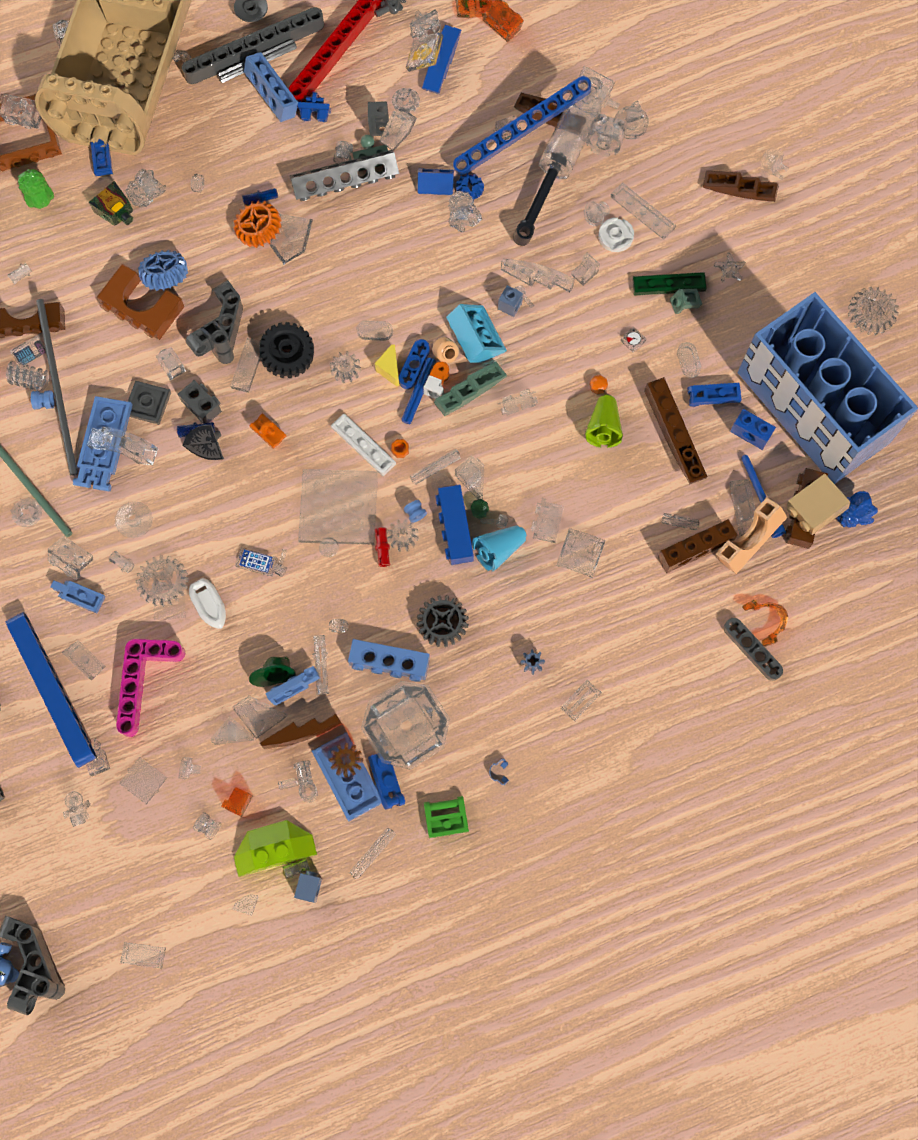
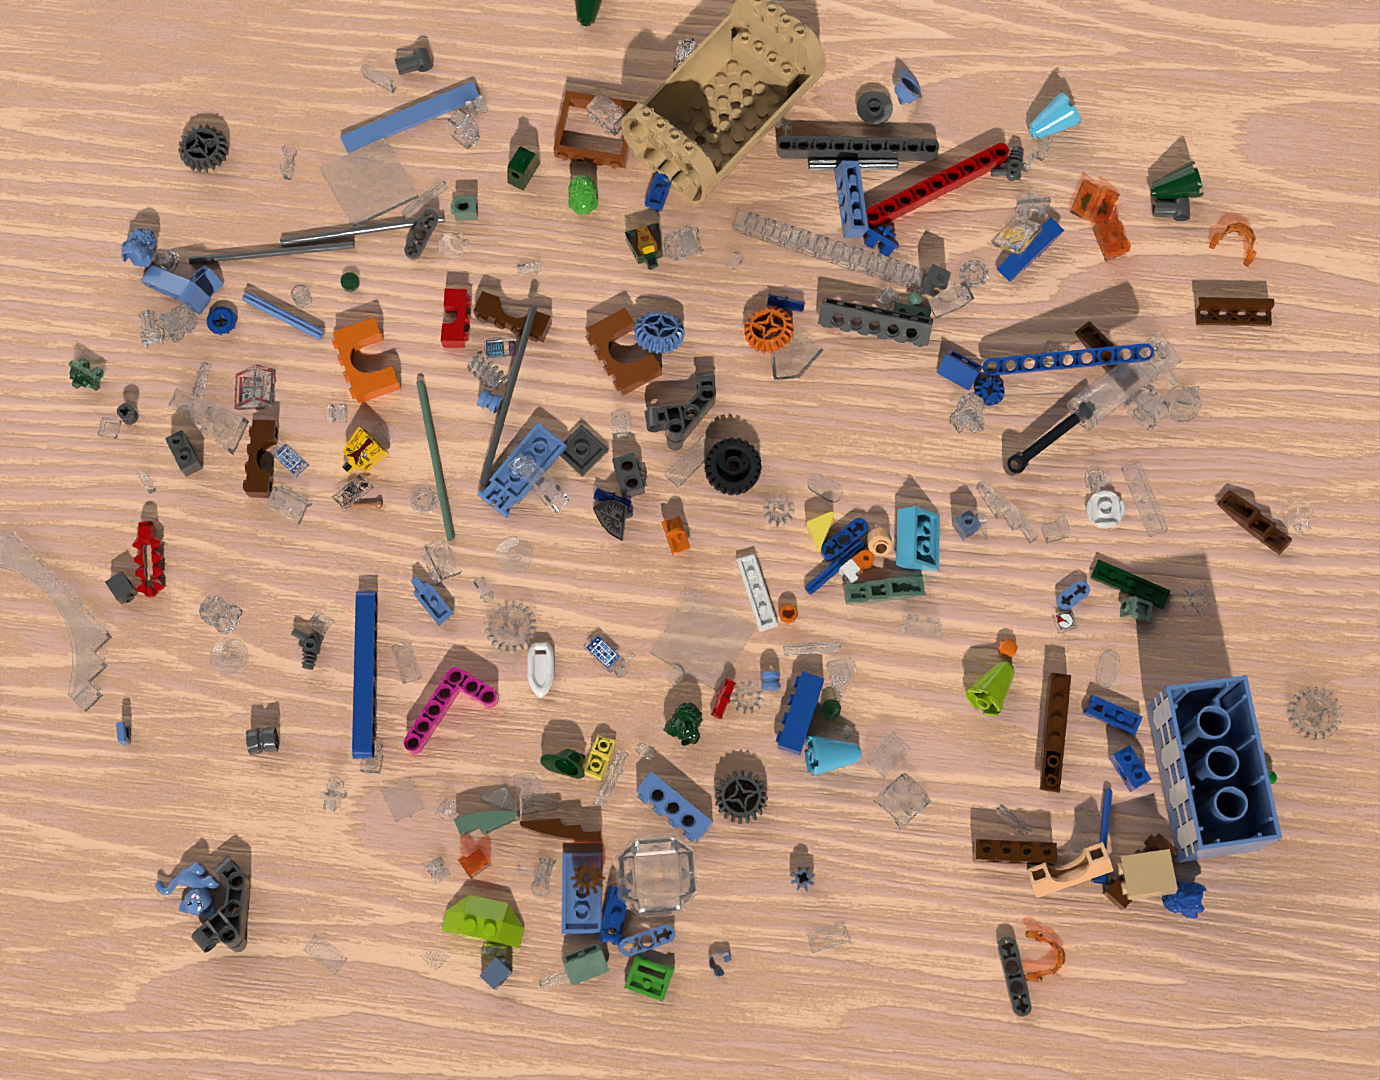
camera: 30 degrees right, 0 degrees up
(228, 759) = (485, 821): none -> sand green slope
(273, 137) = (829, 250): none -> clear beam
(293, 686) = (578, 785): medium blue hinge -> none
(300, 651) = (599, 757): none -> light yellow slope
(361, 584) = (685, 723): none -> dark green hair
(383, 836) = (585, 964): none -> sand green panel
(413, 793) = (630, 940): none -> medium blue beam
(625, 314) = (1075, 598): none -> medium blue beam
(629, 27) = (1236, 305): none -> reddish brown fence

